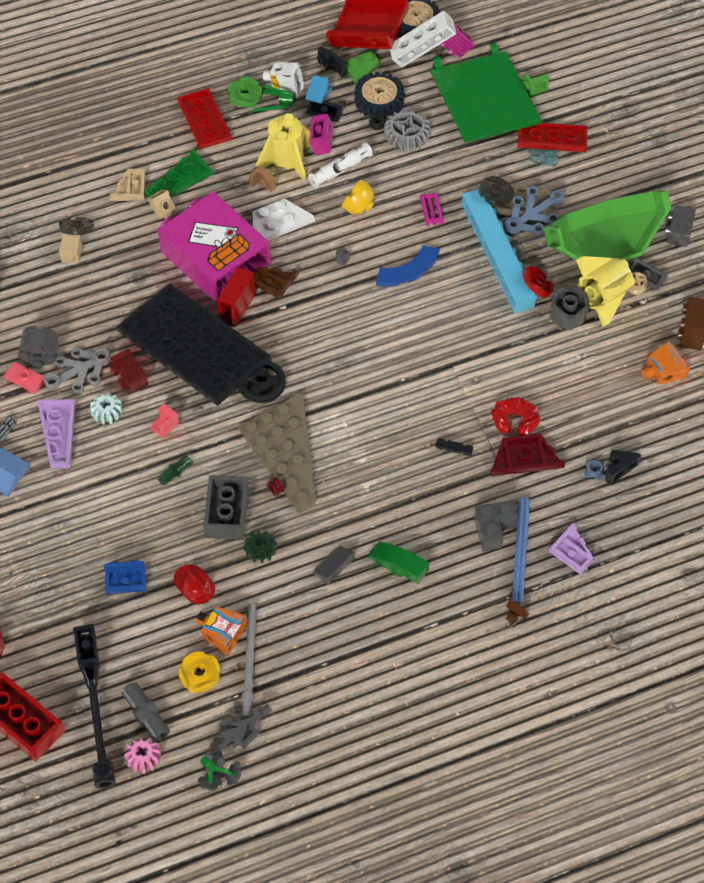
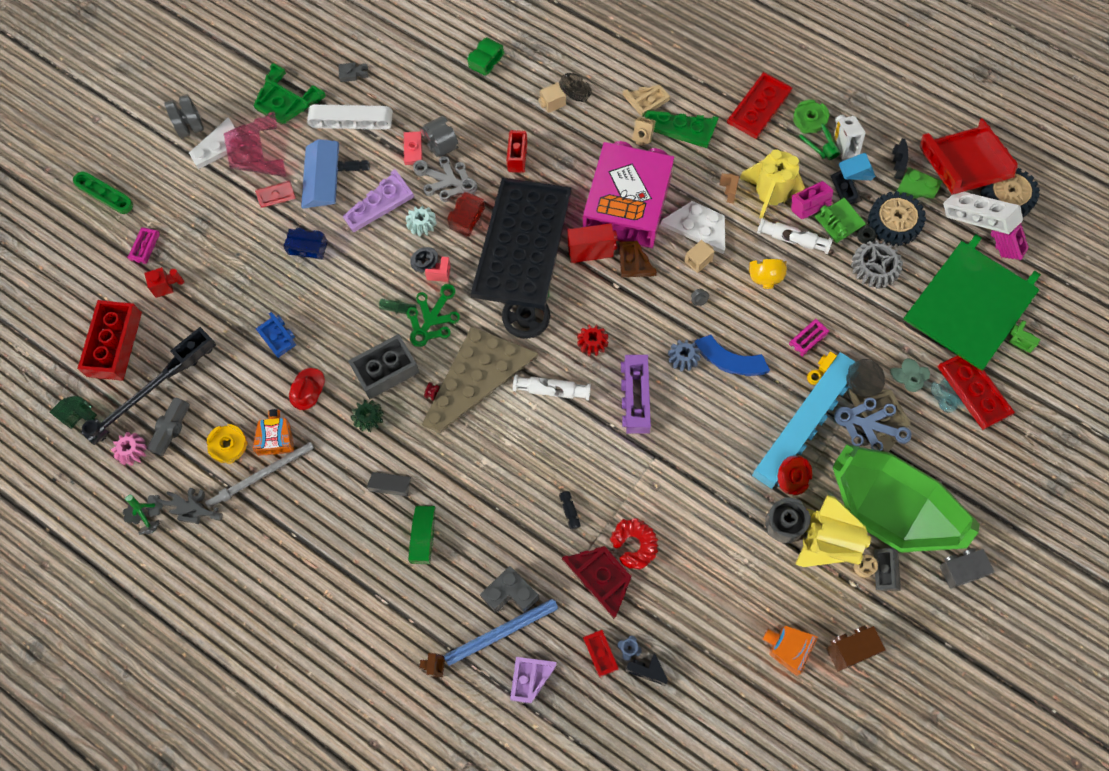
camera: 60 degrees right, 10 degrees up
(52, 508) = (305, 243): none -> clear blue brick
(64, 782) = (72, 409): none -> clear green brick
(102, 300) = (517, 151): none -> red brick
(146, 418) = (420, 255): none -> black gear
(215, 465) = (431, 318): none -> green plant
(307, 235) = (699, 256): none -> tan brick
(321, 347) = (592, 346): none -> red gear
(338, 400) = (545, 386): none -> white piece
(350, 130) = (840, 220): none -> bright green hinge
(384, 295) = (681, 361): none -> sand blue gear
(392, 344) = (636, 424): none -> medium lavender brick
(462, 209) = (824, 363): none -> yellow plate
(511, 167) = (911, 375): none -> sand green plate
(586, 490) = (600, 653): none -> red plate

